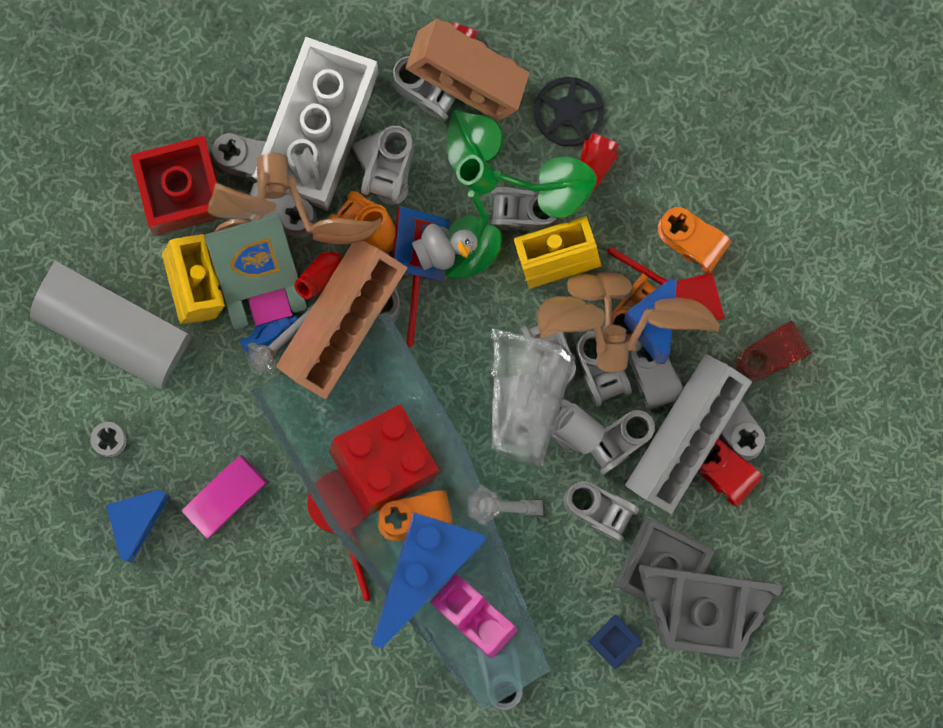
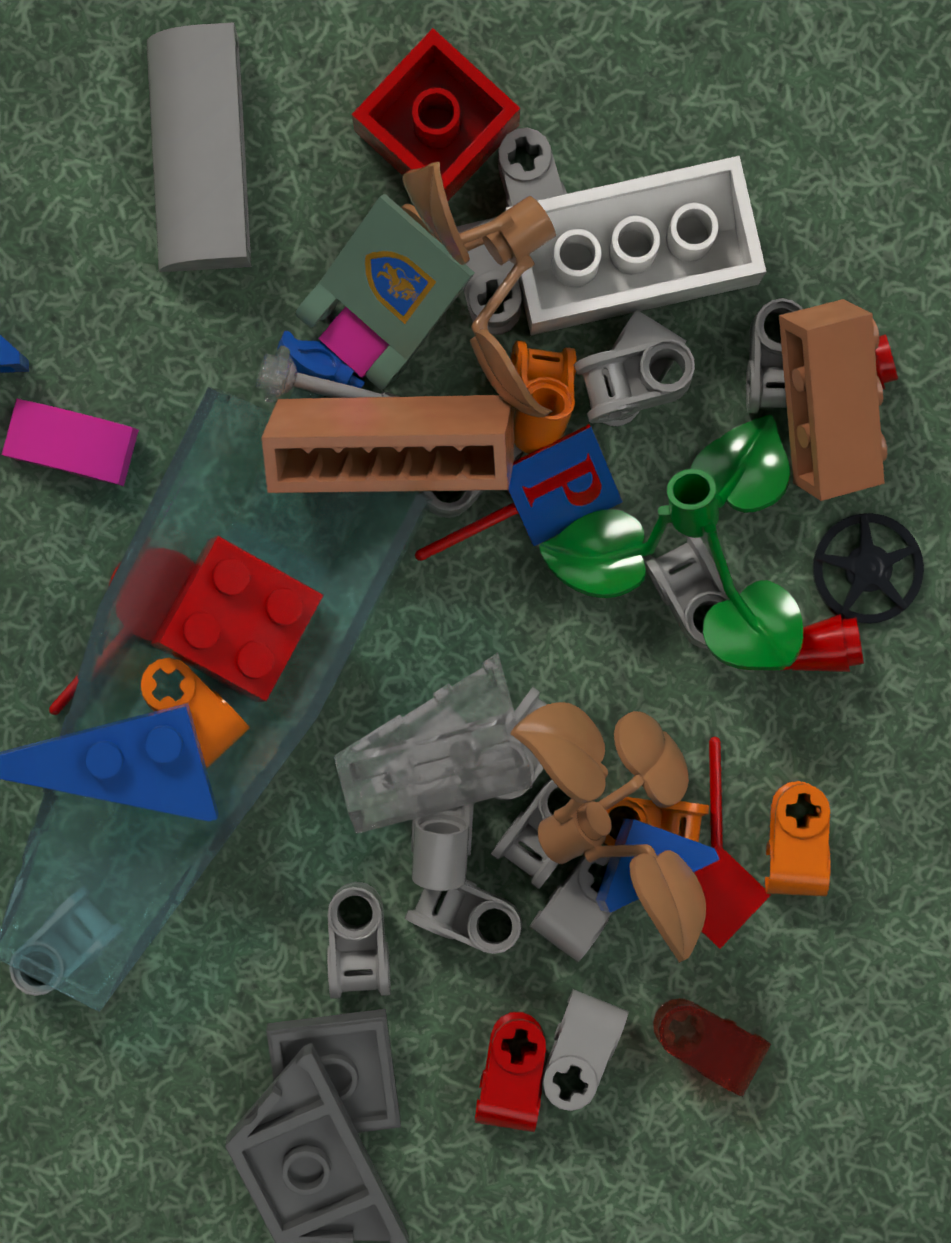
camera: 60 degrees right, 5 degrees up
(96, 441) = (39, 231): light grey bush -> none
(192, 279) = (322, 217): yellow brick -> none
(305, 166) = (559, 267): light grey bush -> none
(317, 274) = (433, 376): red cone -> none
(437, 250) = (562, 517): light grey animal -> none
(473, 616) = (106, 867): dark pink slope -> none
(485, 506) = (254, 793): piece -> none
(557, 252) = (663, 673): yellow brick -> none
(614, 641) = (196, 1069): dark blue plate -> none
(688, 433) = (525, 1000): light grey brick -> none

